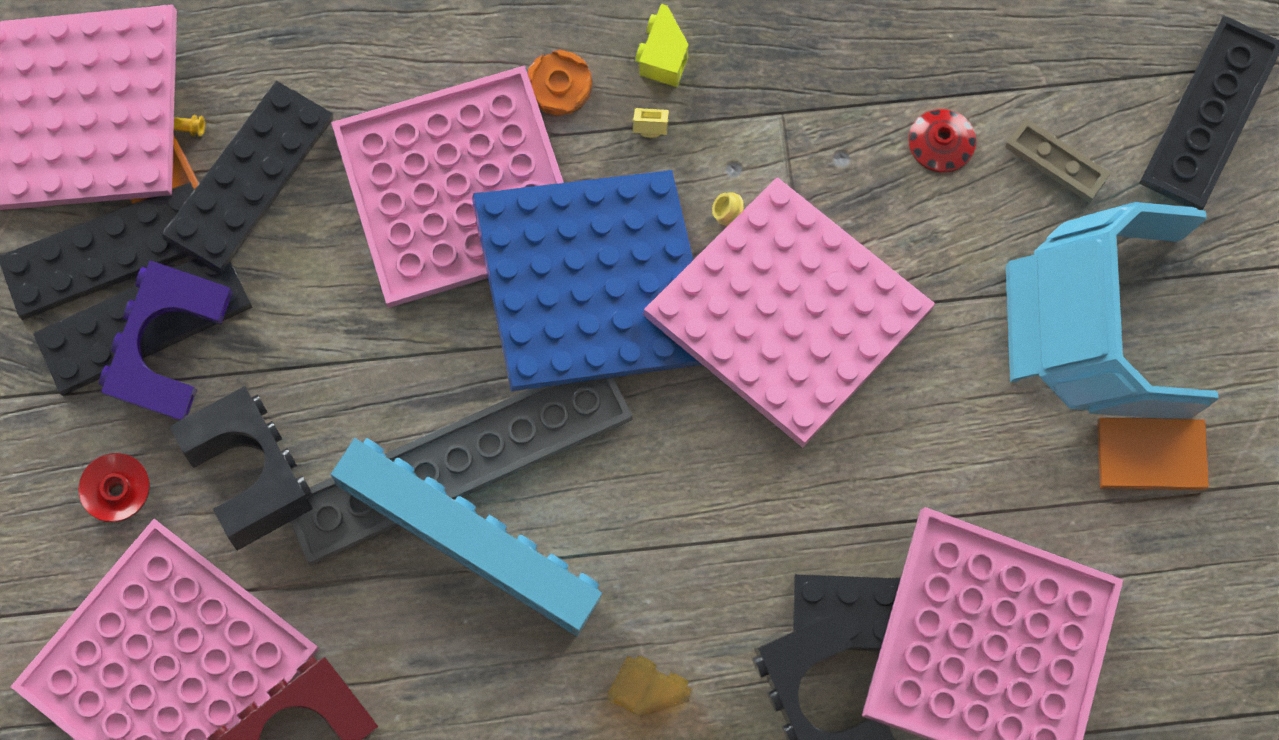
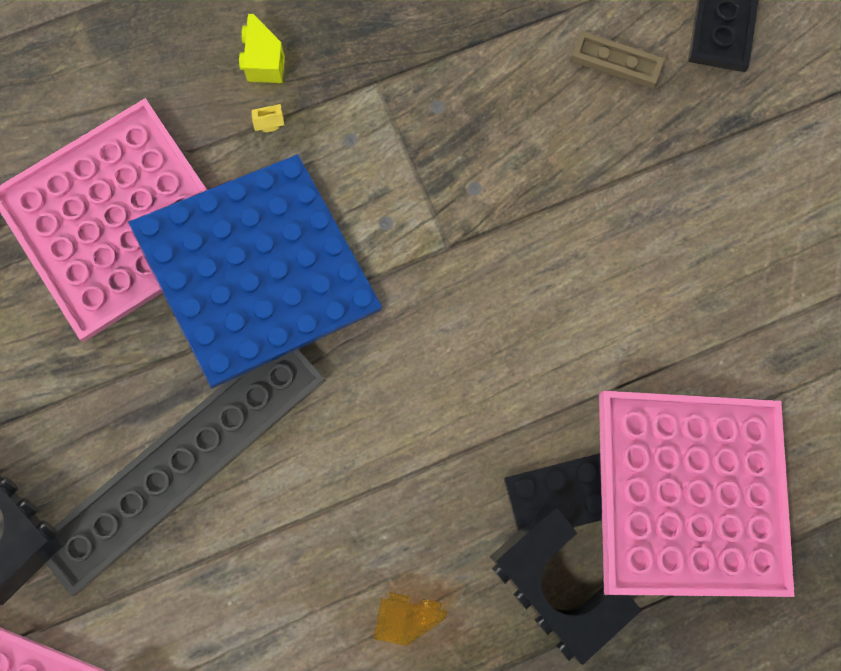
camera: 20 degrees left, 5 degrees up
(467, 537) = (203, 535): medium azure brick -> none
(560, 82) = (181, 105): orange tile -> none
(727, 207) = (355, 174): light yellow plate -> none
(789, 311) = (431, 250): bright pink plate -> none
(938, 153) = (512, 79): red dish -> none
(1069, 314) = (673, 187): medium azure piece -> none
(1152, 454) = (769, 285): orange tile -> none

